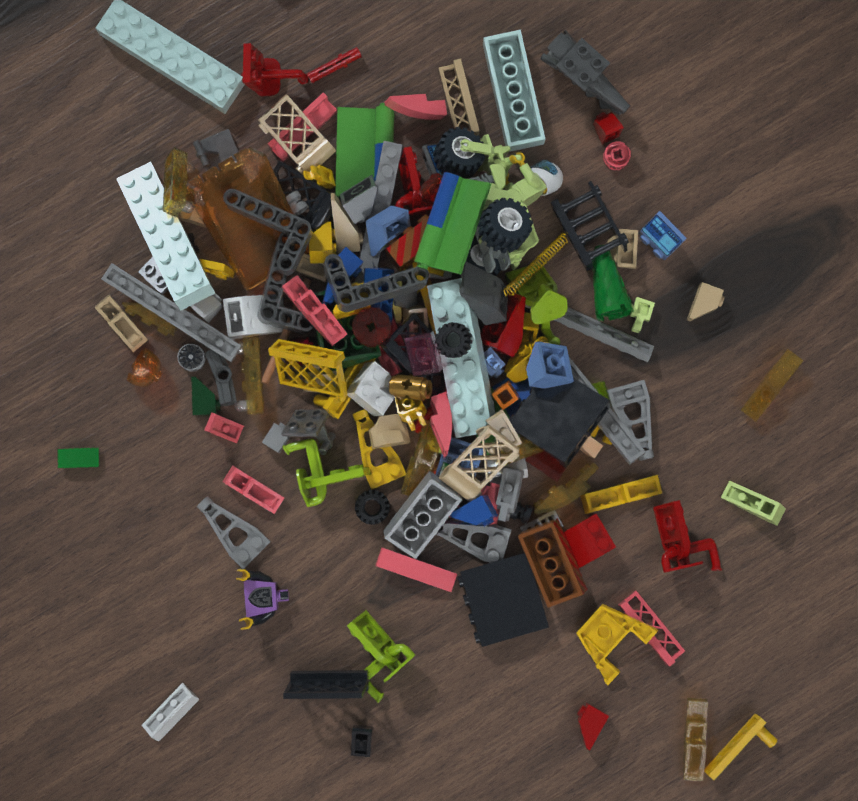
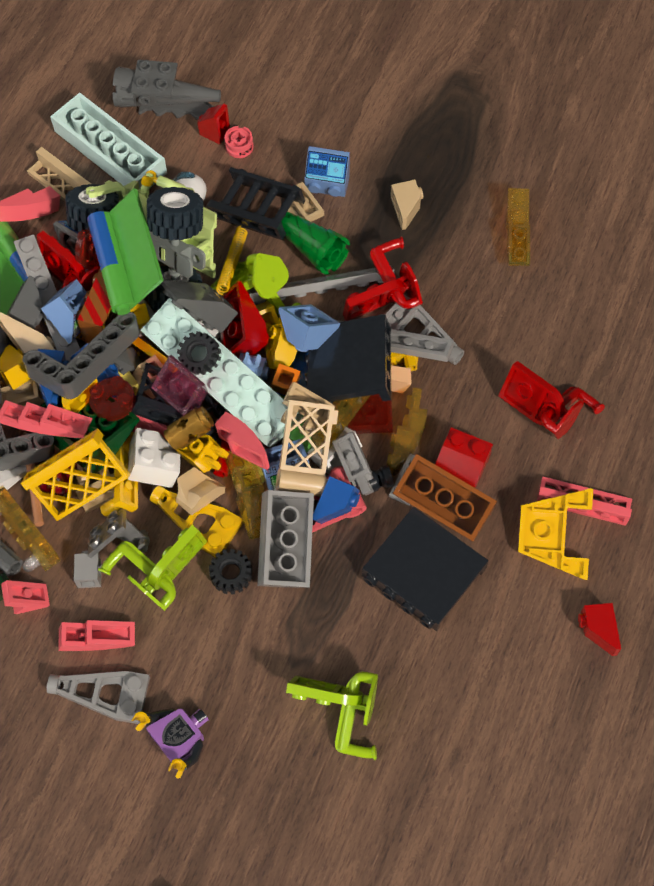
camera: 30 degrees left, 20 degrees down
(327, 684) = (308, 771): black fence -> none
(361, 740) = (387, 809): black slope -> none
(416, 569) = (317, 598): coral slope -> none
(496, 543) = (378, 522): light grey plate -> none
(621, 494) = (460, 404): yellow slope -> none
(639, 372) = (390, 291): none -> red plate
(642, 312) = (358, 246): yellowish green plate -> none
(754, 503) = (585, 330): yellowish green slope -> none

